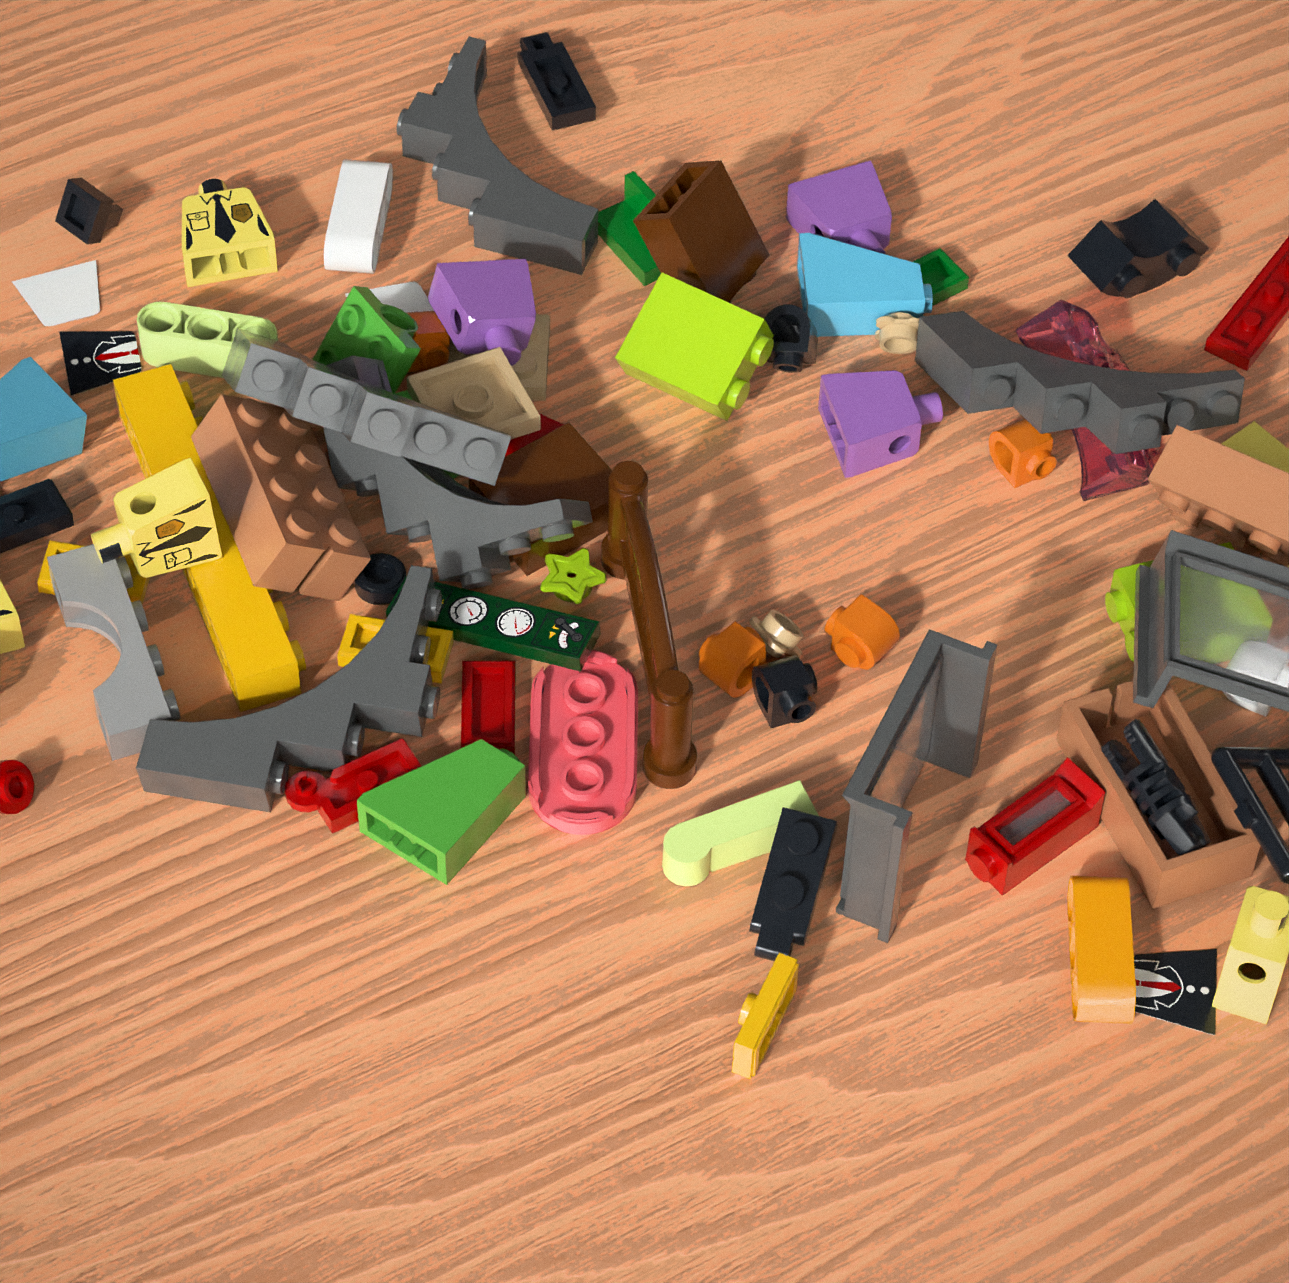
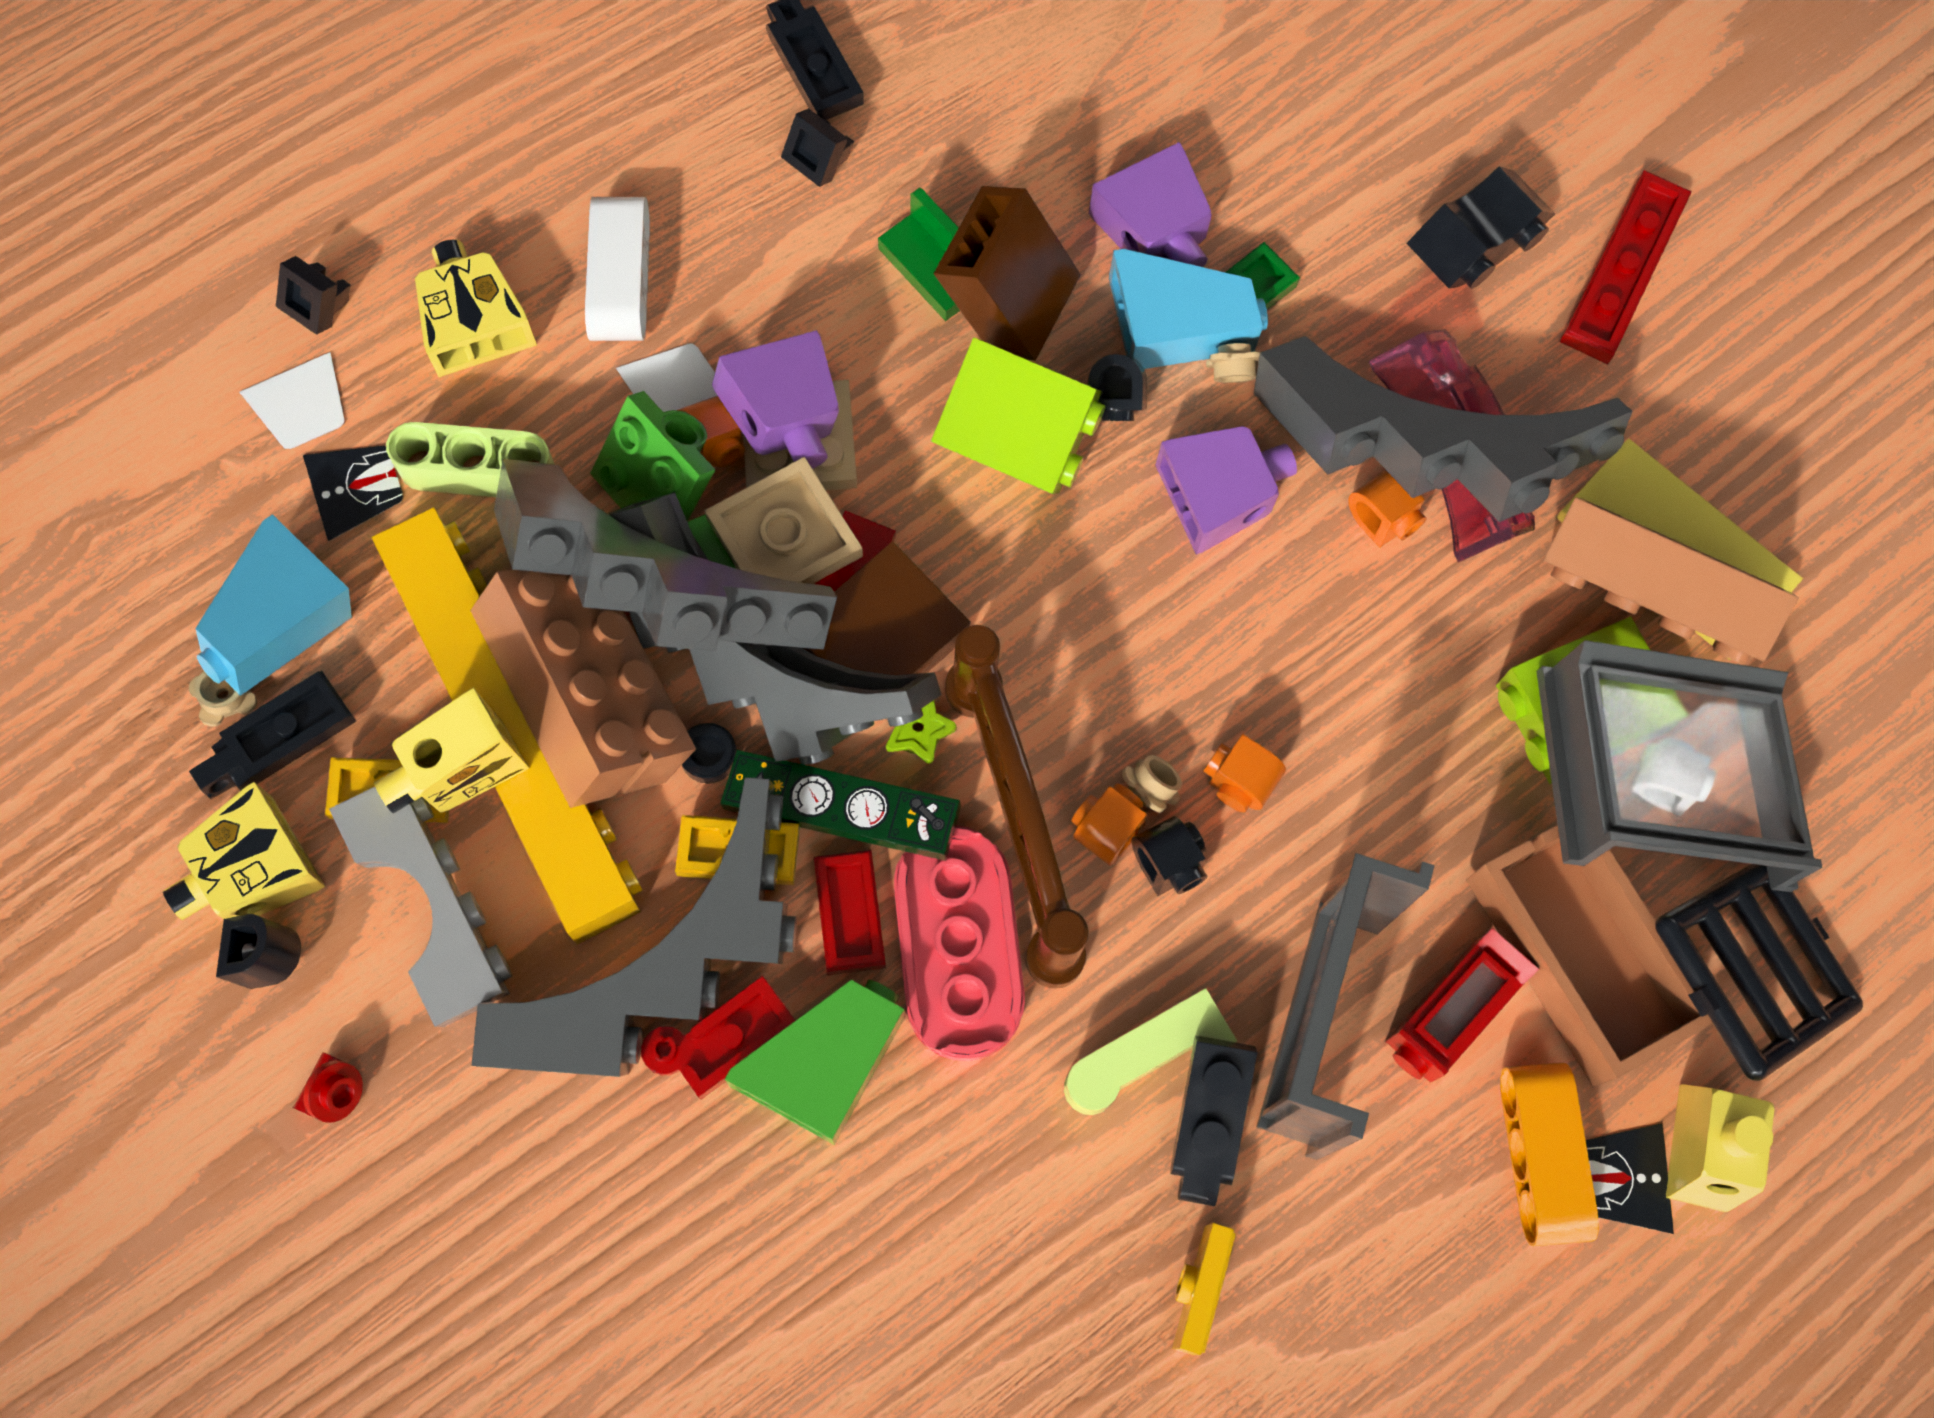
camera: 10 degrees left, 20 degrees up
(505, 205) = (784, 241): dark grey arch -> none
(548, 144) = (815, 147): none -> black tile
(1157, 789) = (1600, 974): black hinge -> none

